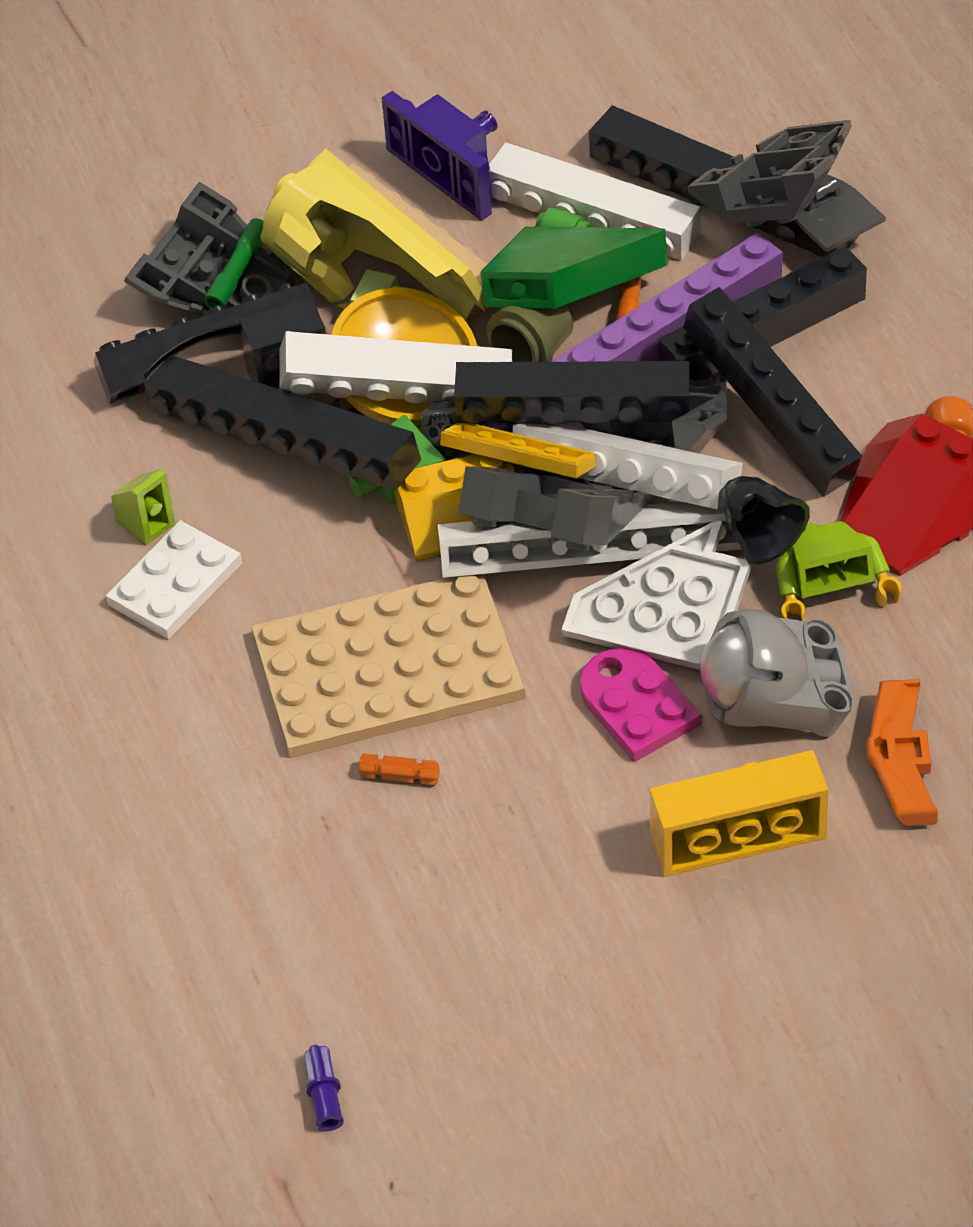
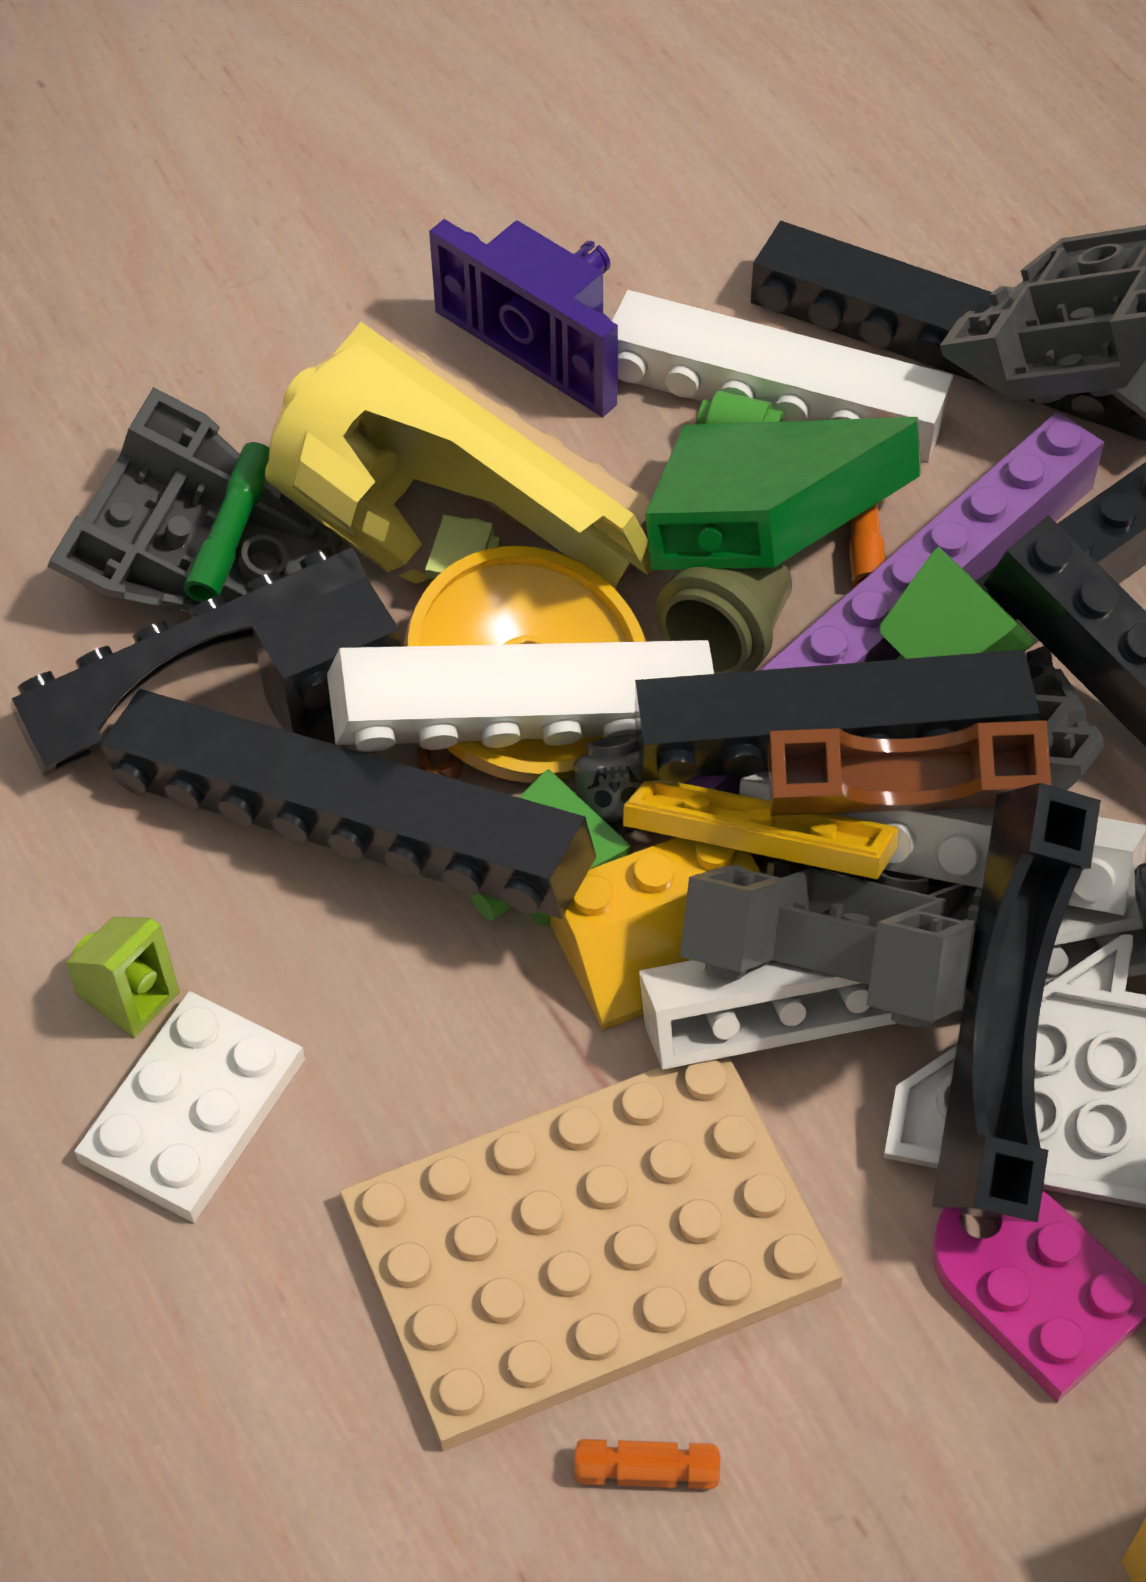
camera: 10 degrees left, 5 degrees up
(563, 419) = (851, 774): none -> dark orange arch
(620, 597) = (990, 1134): none -> black arch
(657, 338) = (949, 615): none -> bright green torso

